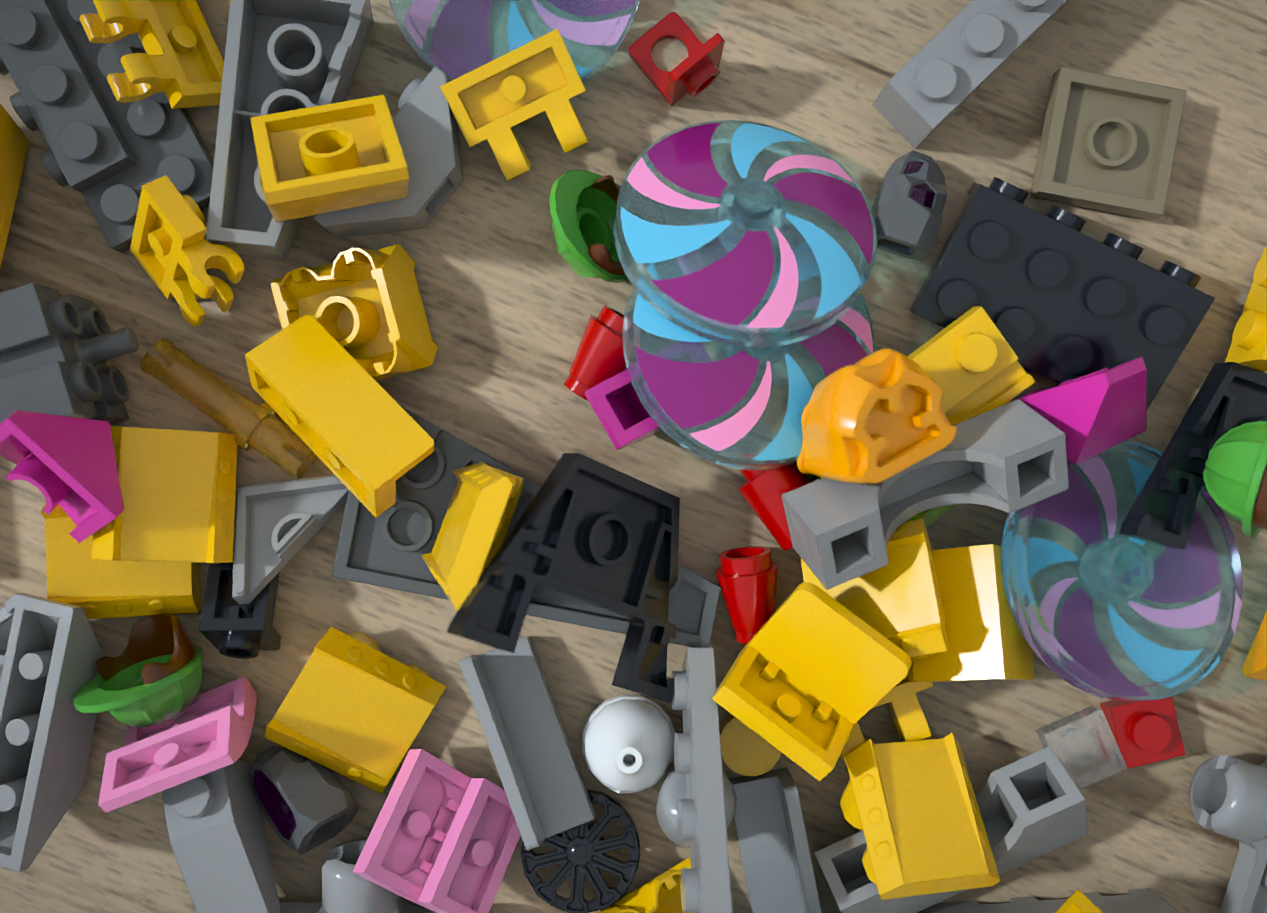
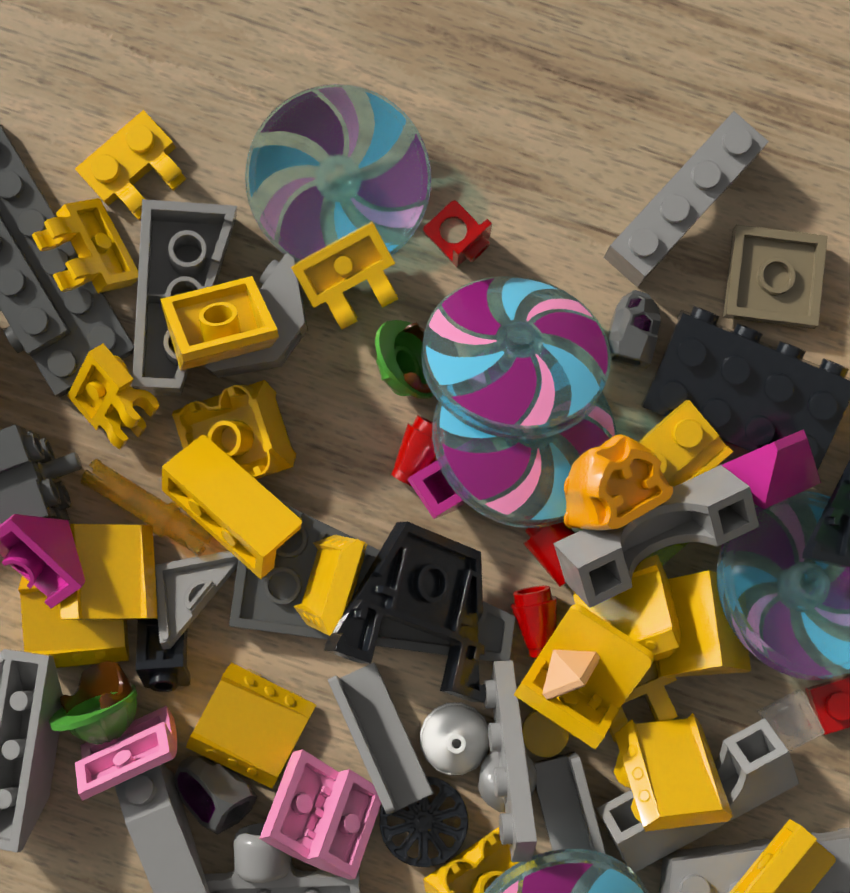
camera: 10 degrees left, 5 degrees down
(791, 675) = (568, 671): none -> light nougat slope

